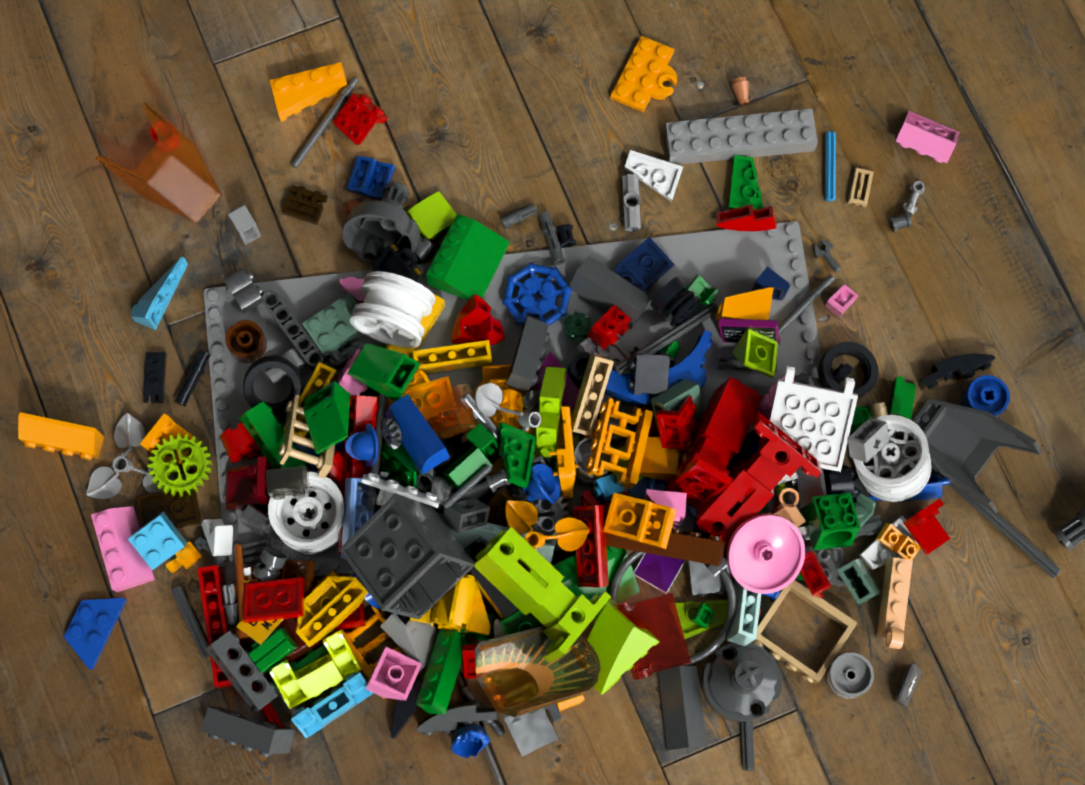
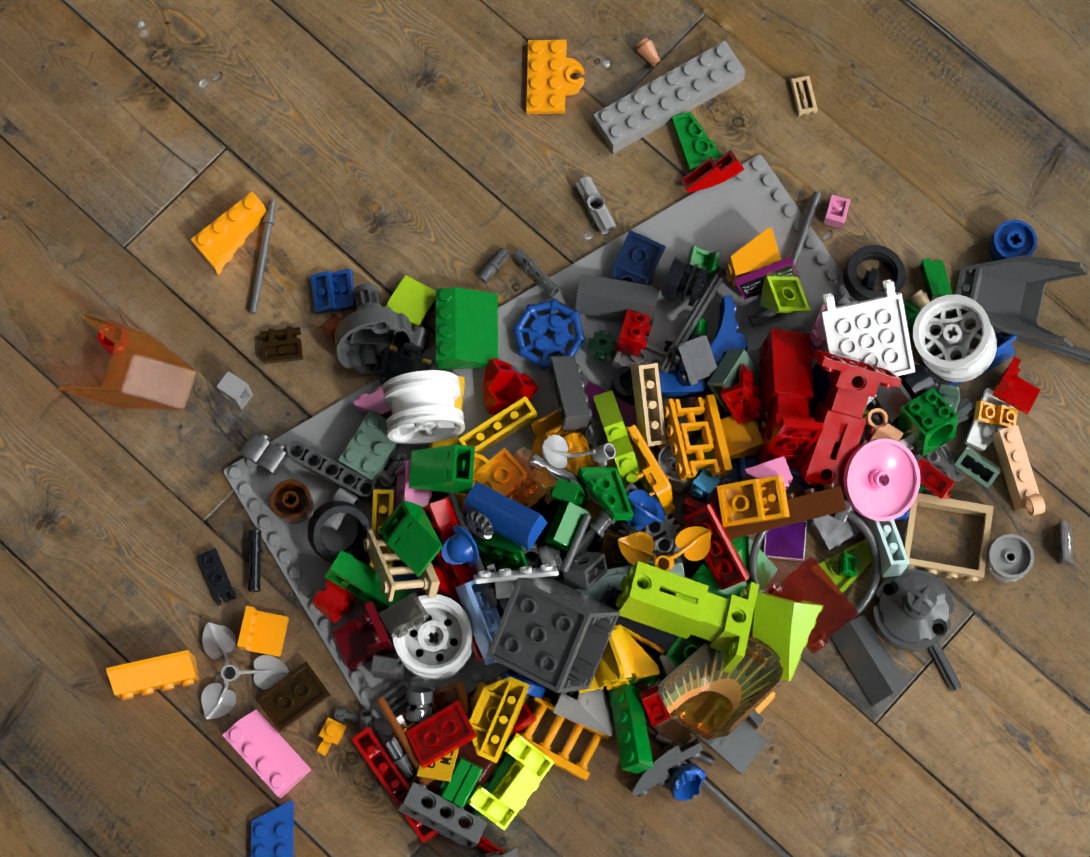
camera: 20 degrees left, 0 degrees up
(155, 301) = (181, 507): medium azure wedge -> none
(157, 540) = (299, 730): medium azure brick -> none
(162, 470) = (298, 636): lime gear -> none
(191, 621) = (367, 793): dark grey axle -> none
(218, 536) = (355, 700): white slope -> none
(328, 709) = (544, 807): medium azure bracket -> none
(359, 117) = (294, 238): red bracket -> none
(393, 675) = (587, 752): bright pink slope -> none
(405, 709) = (611, 774): black slope -> none
(566, 235) = (548, 264): black bush -> none
(655, 173) = (605, 167): white wing -> none
(771, 279) = (765, 220): dark blue tile -> none
(826, 254) = (801, 173): dark grey bar -> none
(830, 166) = (766, 88): dark azure axle -> none
(868, 439) = (927, 330): light grey brick -> none
(899, 222) = (856, 112): dark grey bush -> none
(915, 189) = (856, 76): light grey bar -> none
(927, 137) = (844, 20): bright pink slope -> none
(959, 366) = (973, 226): black slope -> none

